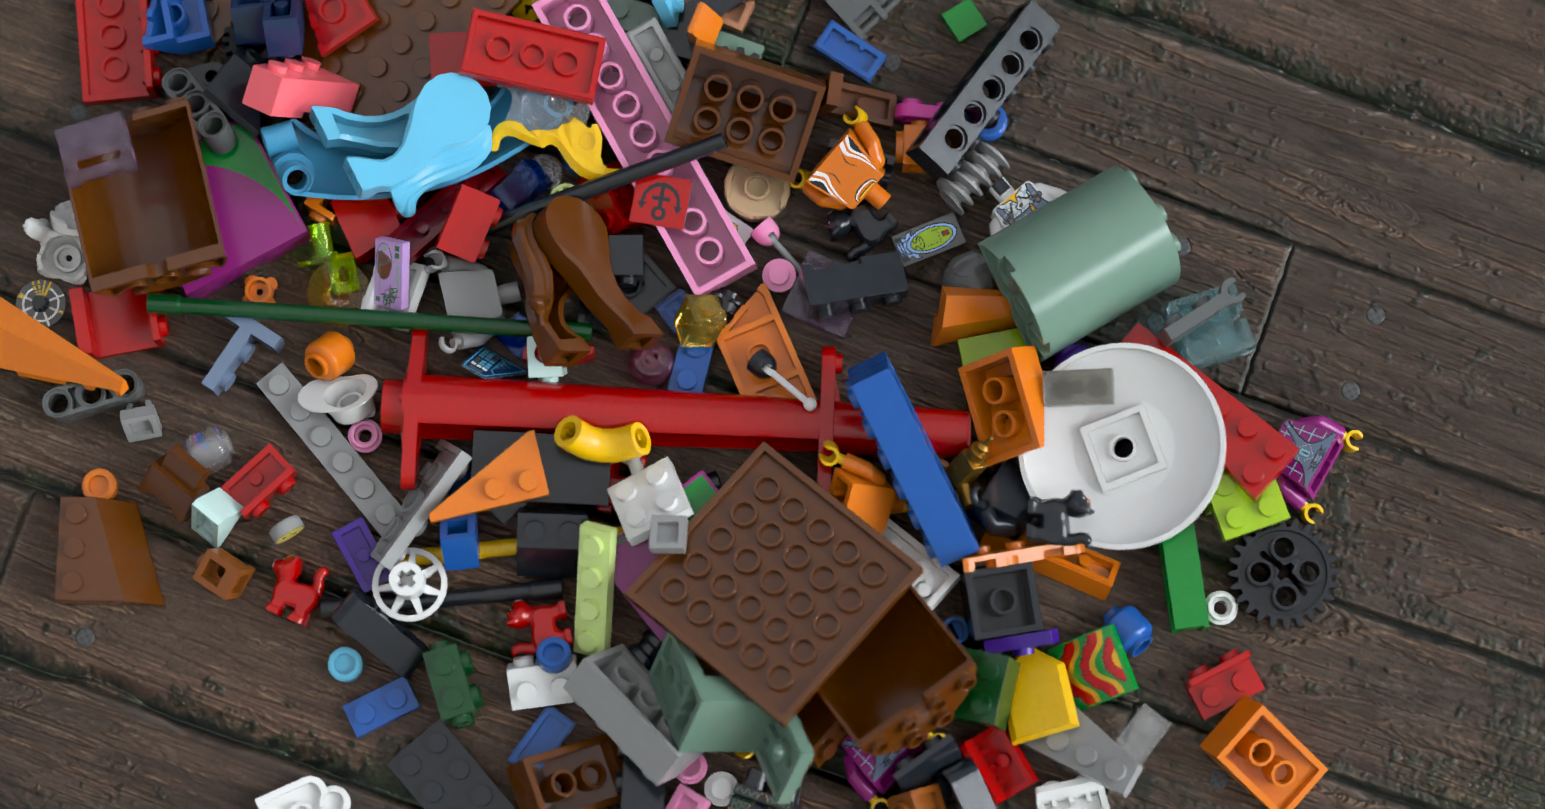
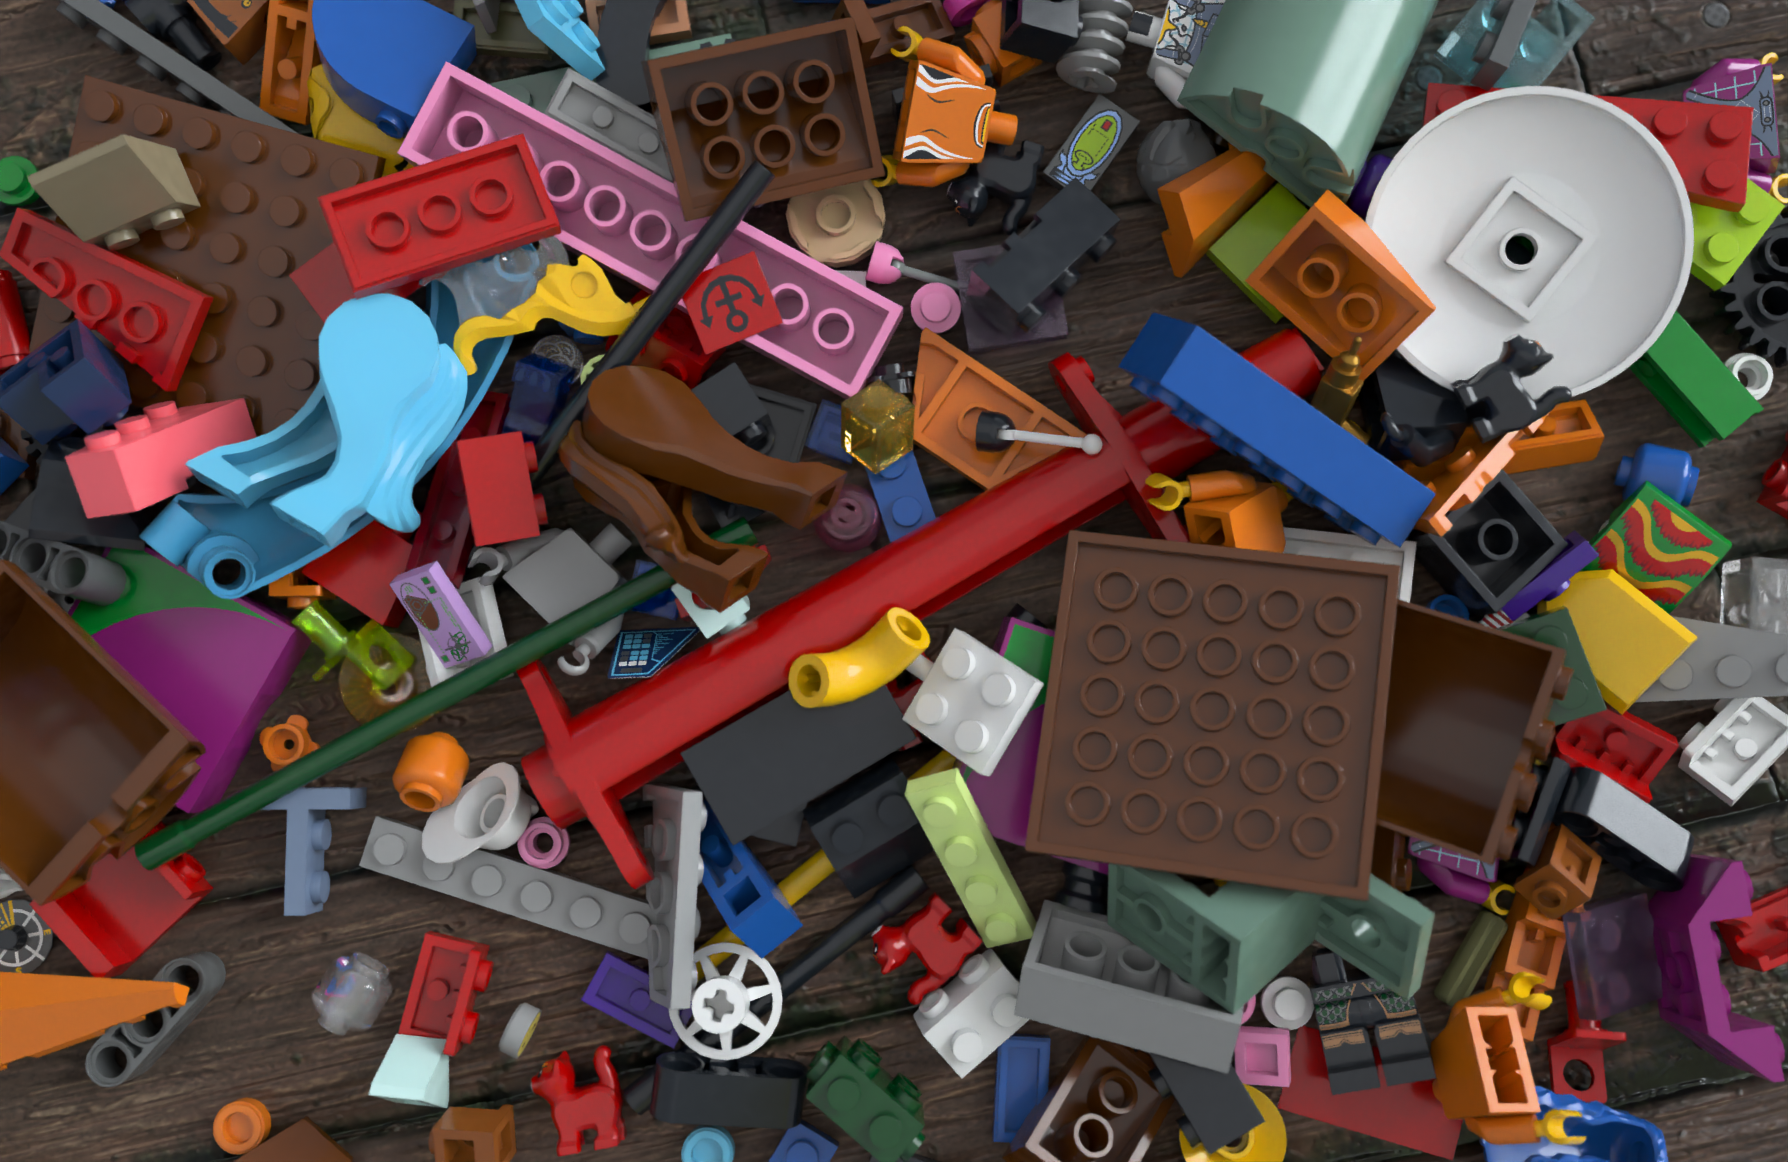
camera: 30 degrees left, 5 degrees up
(140, 422) = (240, 1012): light grey tile -> none
(177, 481) = (334, 1064): reddish brown piece -> none
(507, 480) = (766, 793): orange wing -> none
(554, 655) = (972, 977): blue tile -> none
(668, 534) = (1034, 735): light grey plate -> none
(704, 24) = (637, 42): orange slope -> none
(1078, 387) = (1426, 204): clear smoke plate -> none

